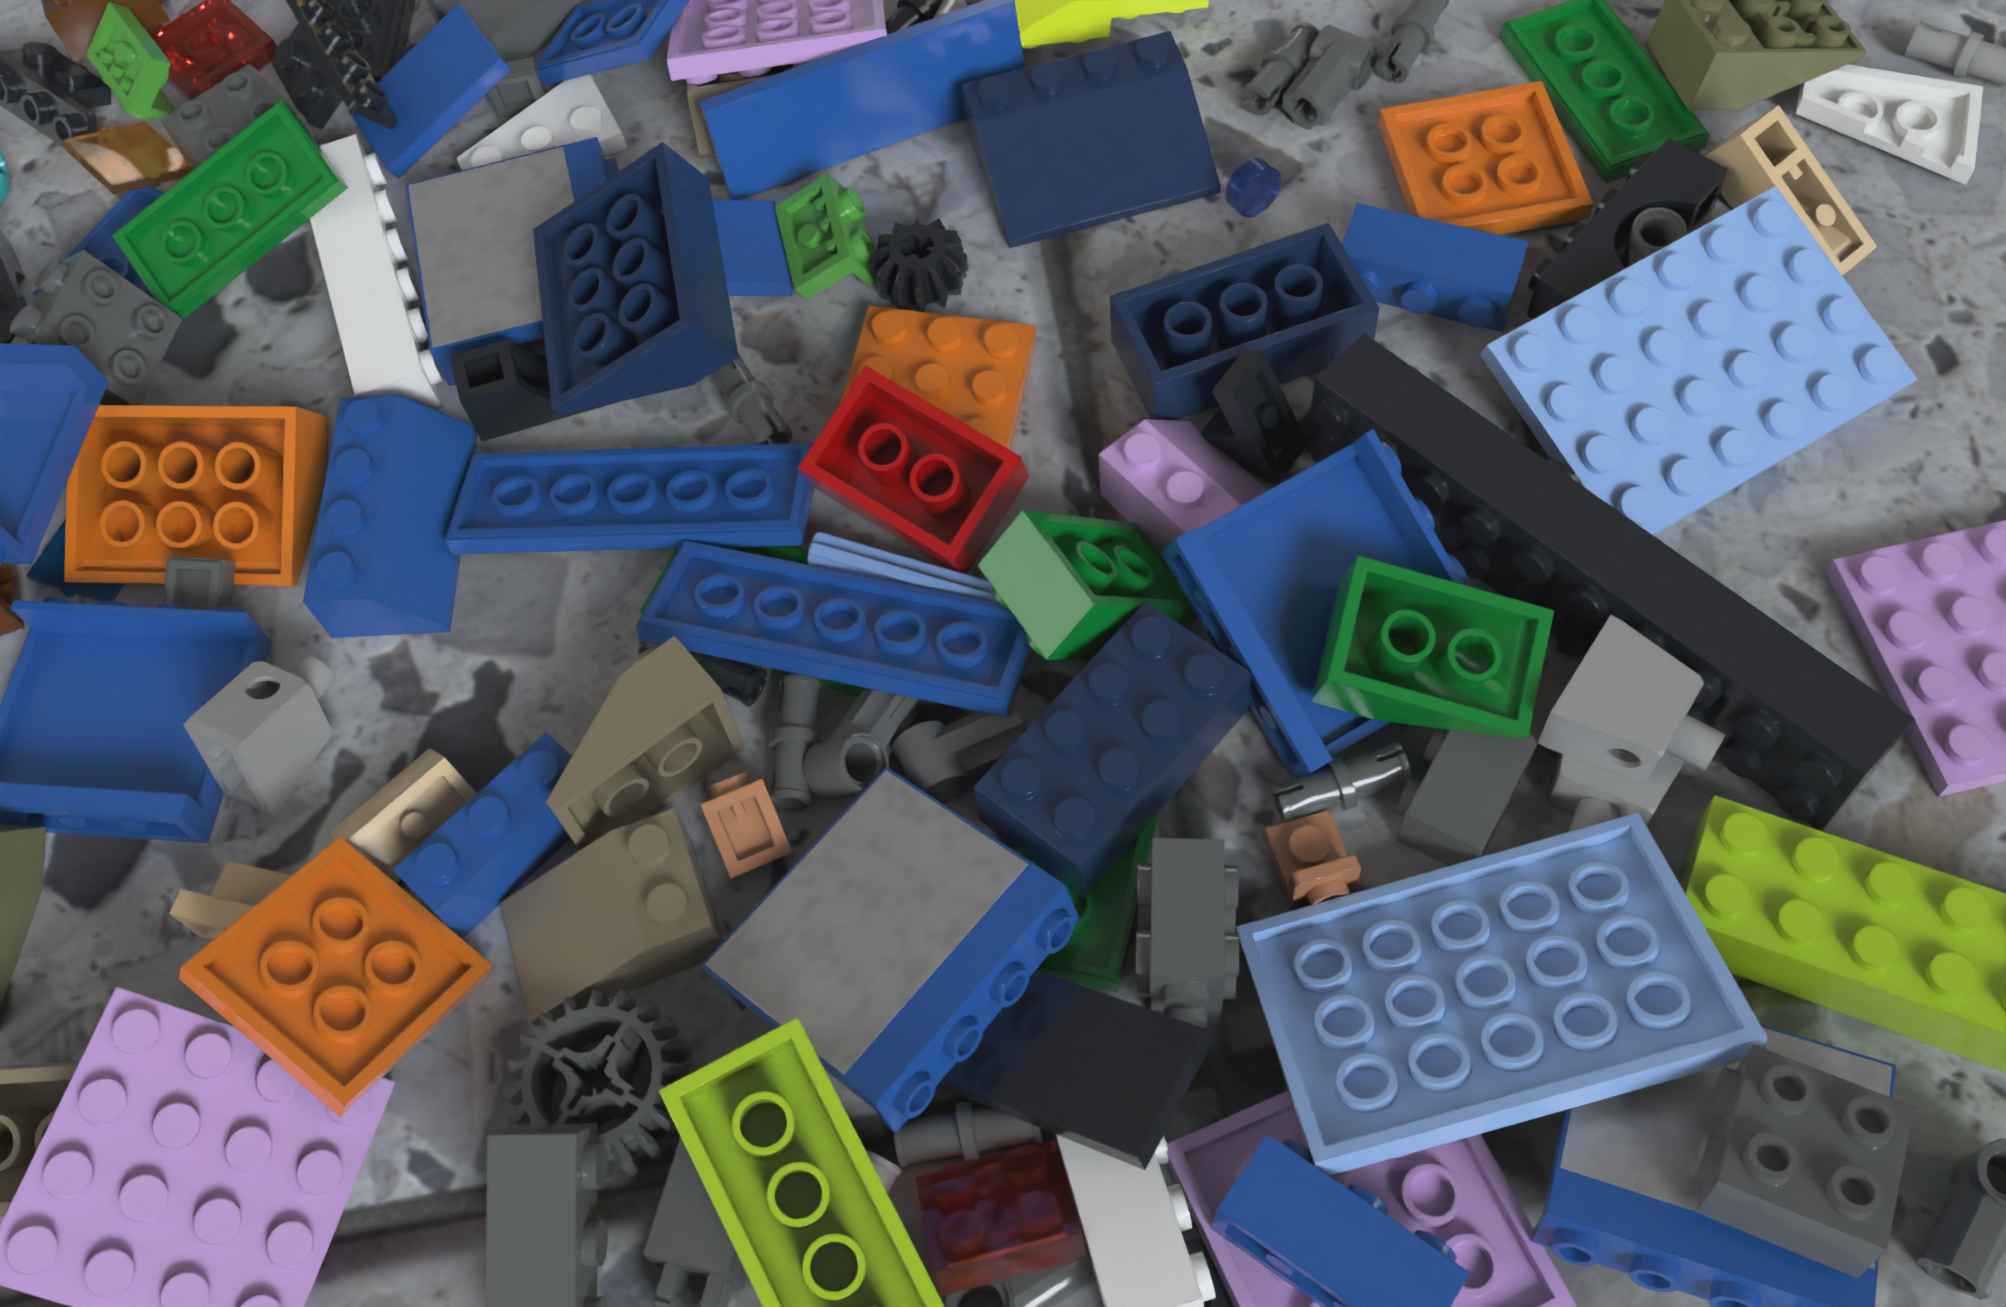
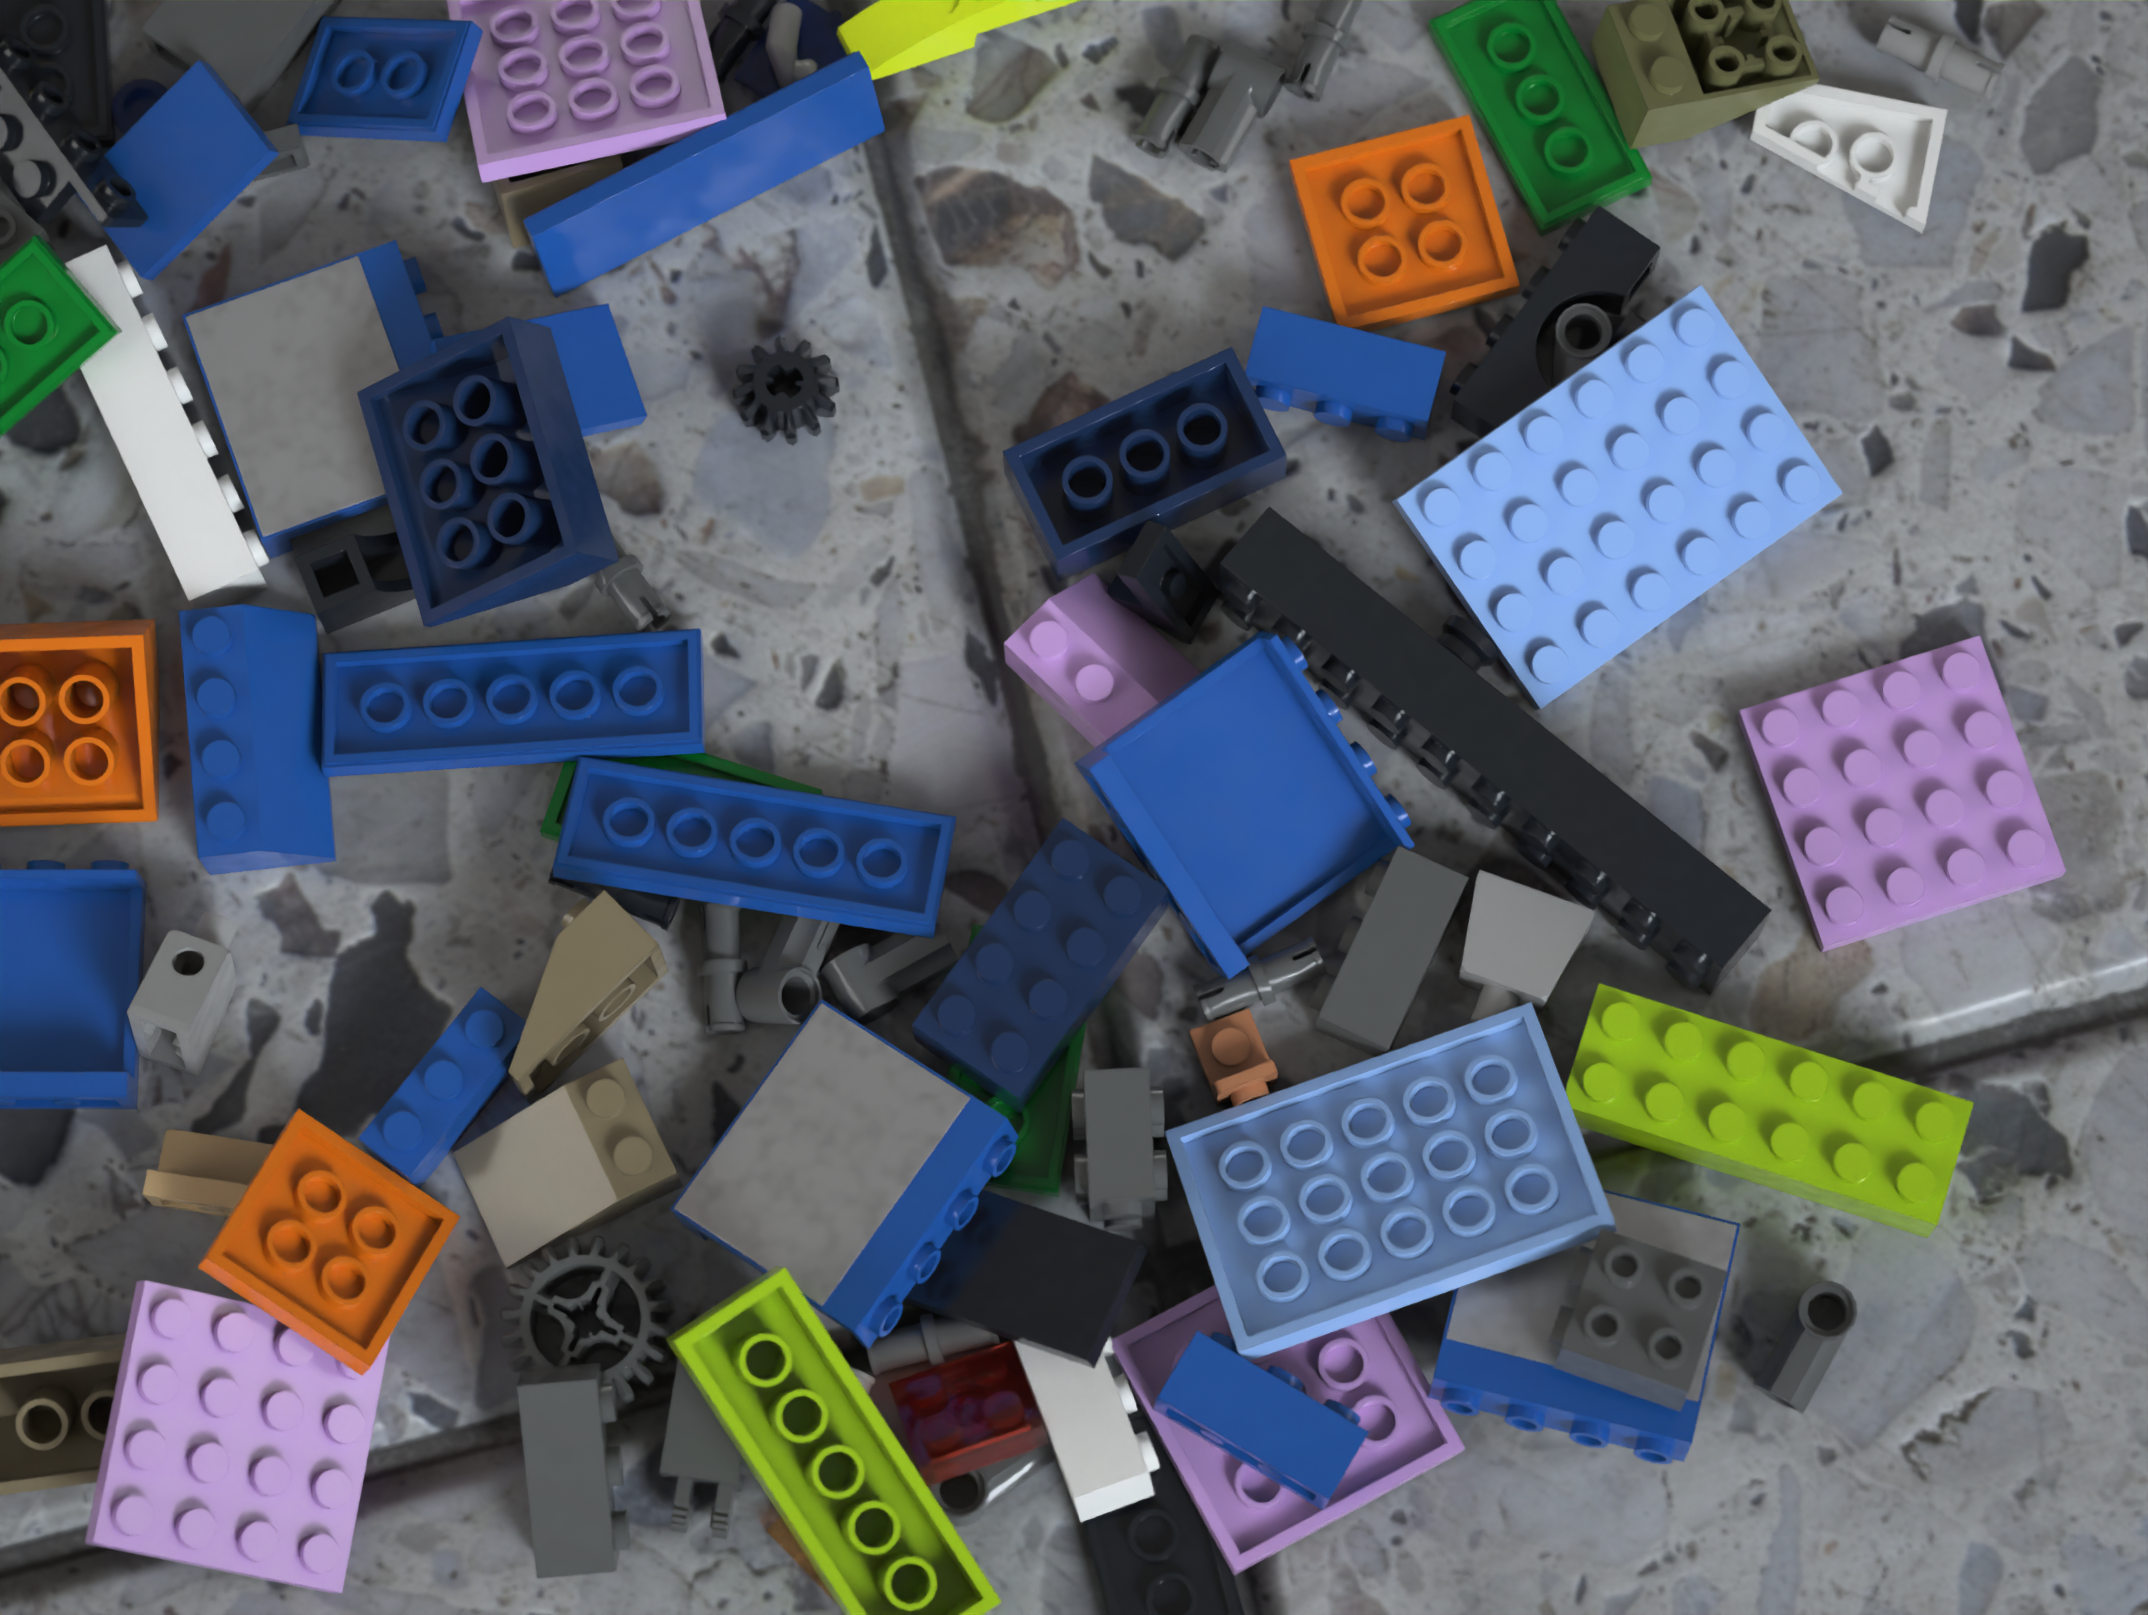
camera: 10 degrees left, 15 degrees up
(199, 582) = (60, 831): dark grey tile -> none
(405, 812) = (343, 1068): tan panel -> none
(558, 118) = (323, 214): white wing -> none
(745, 824) = (685, 1058): nougat bracket -> none
(825, 236) = (674, 354): bright green bracket -> none
(866, 560) = (783, 771): medium blue axle -> none
(914, 471) = (813, 672): red brick -> none
(954, 362) = (817, 547): orange plate -> none
(1078, 580) = (999, 789): green slope -> none
(1090, 139) = (963, 211): dark blue slope -> none
(1253, 187) = (1149, 270): clear blue tile -> none
(1431, 652) = (1339, 857): green slope -> none
(1629, 708) = (1522, 904): light grey torso -> none
(1773, 154) = (1717, 250): tan slope -> none

